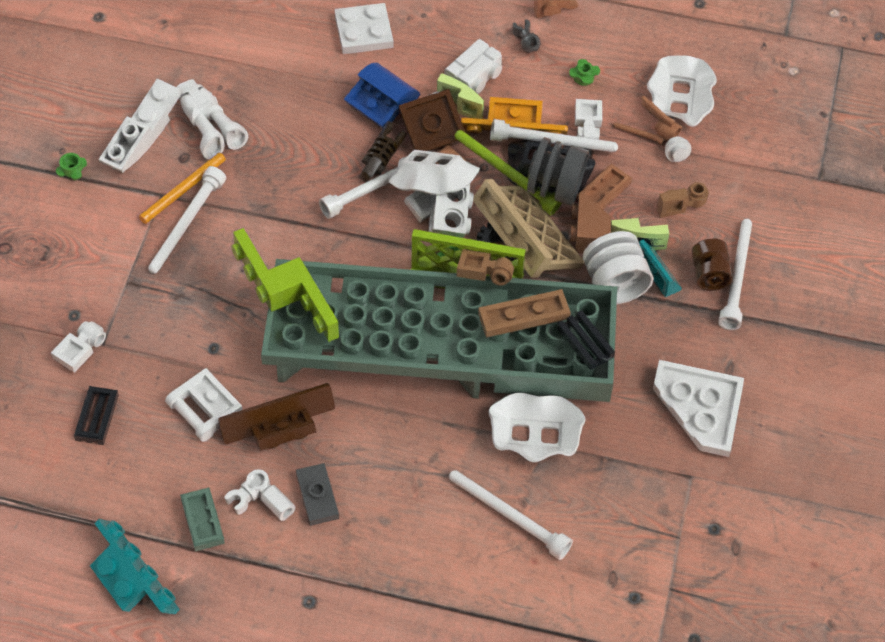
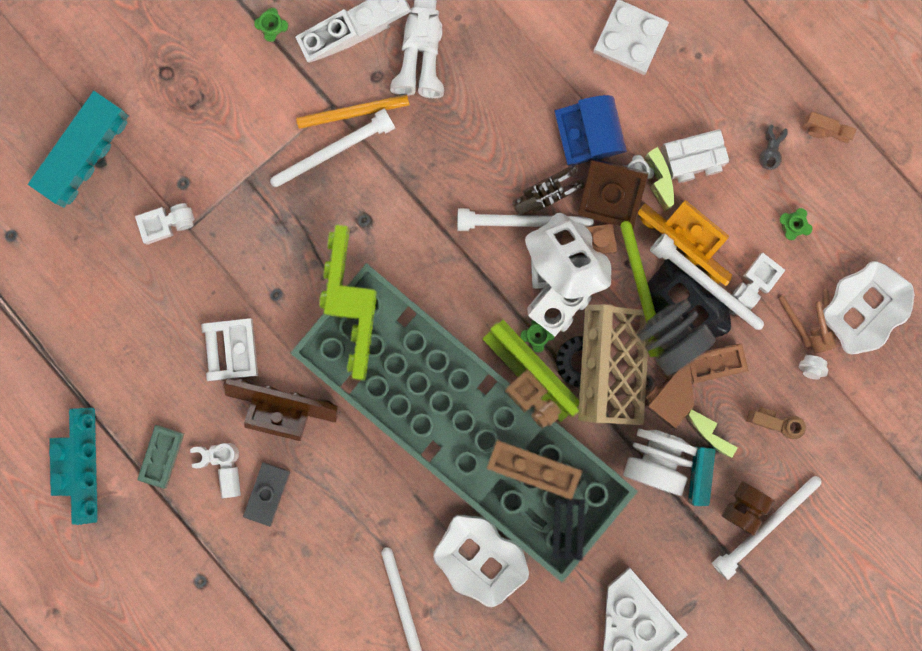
camera: 40 degrees right, 30 degrees up
(91, 435) = (150, 273): black tile -> none

